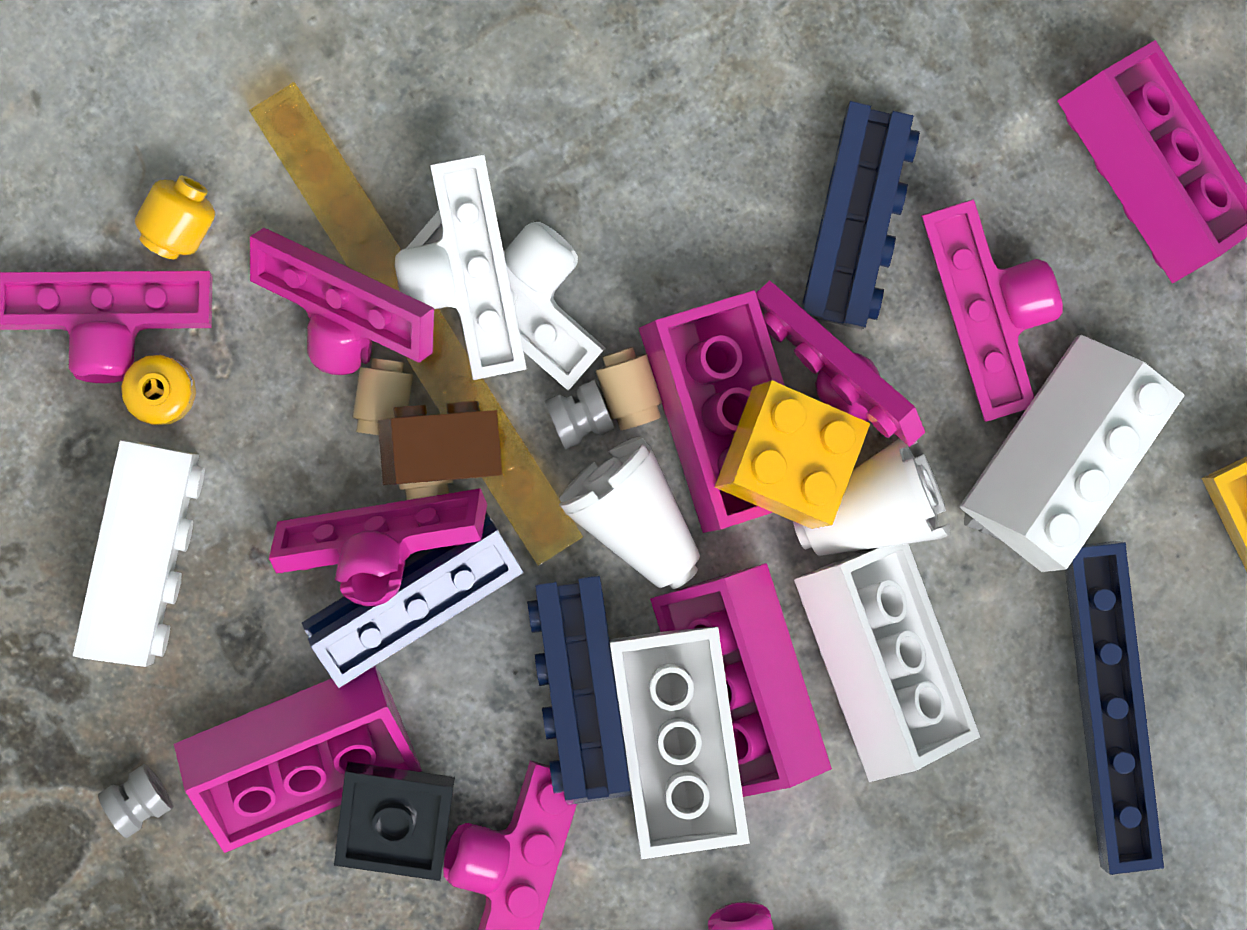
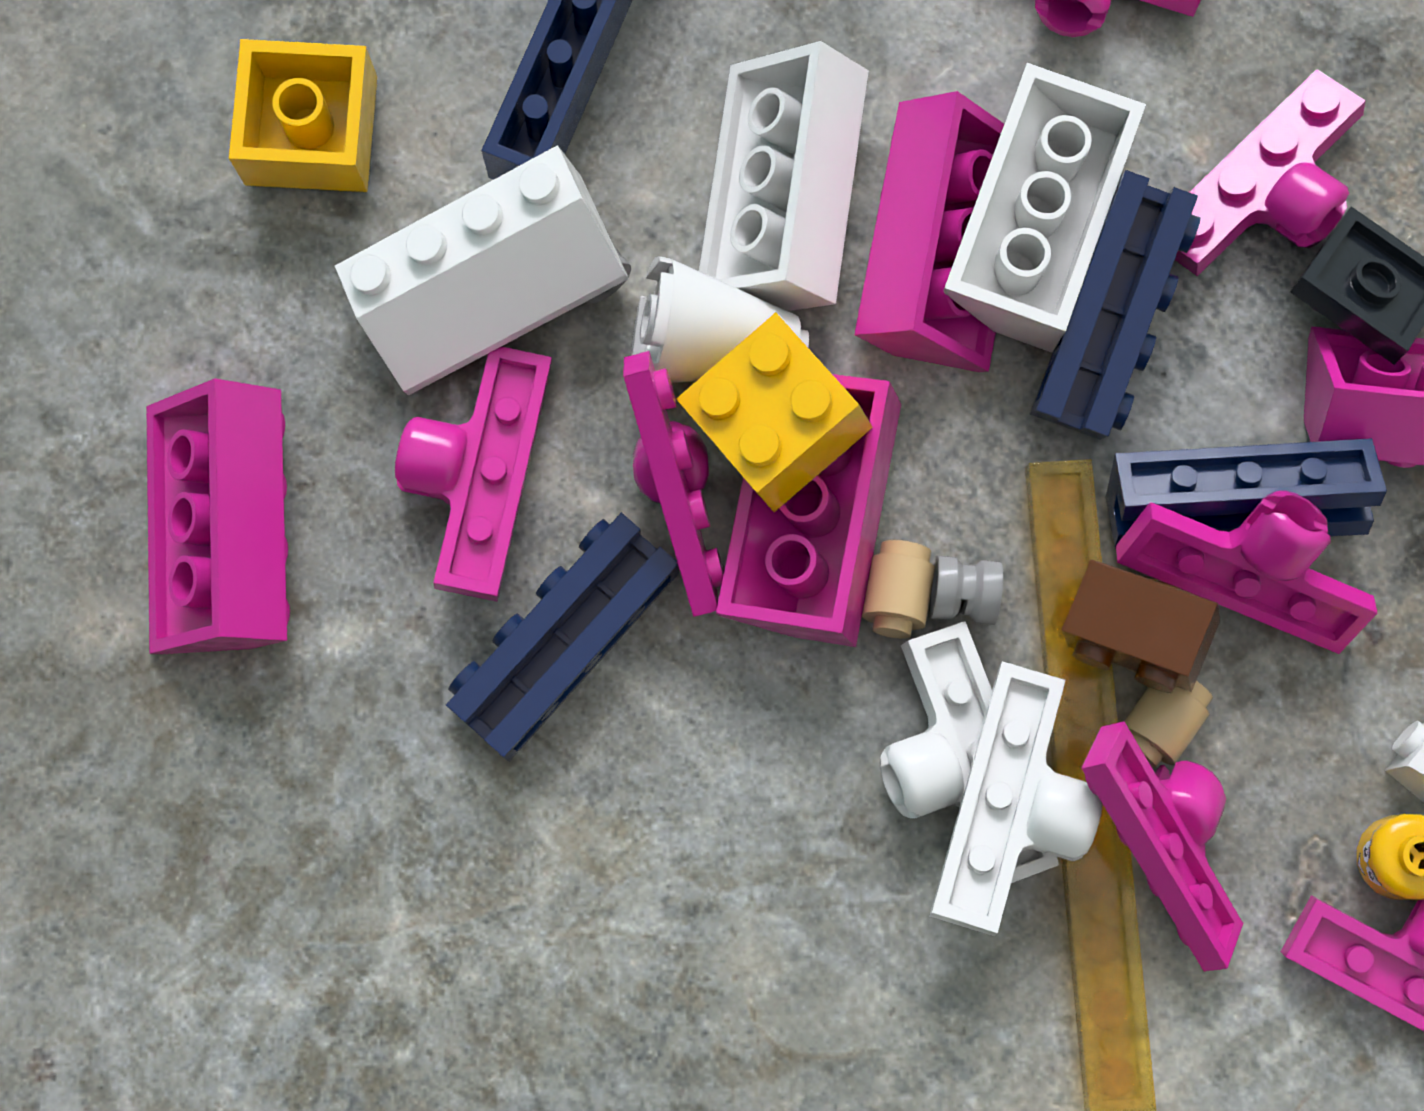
camera: 155 degrees left, 10 degrees down
(175, 217) = (1296, 1036): yellow head -> none
(634, 514) = (966, 458): white cone -> none

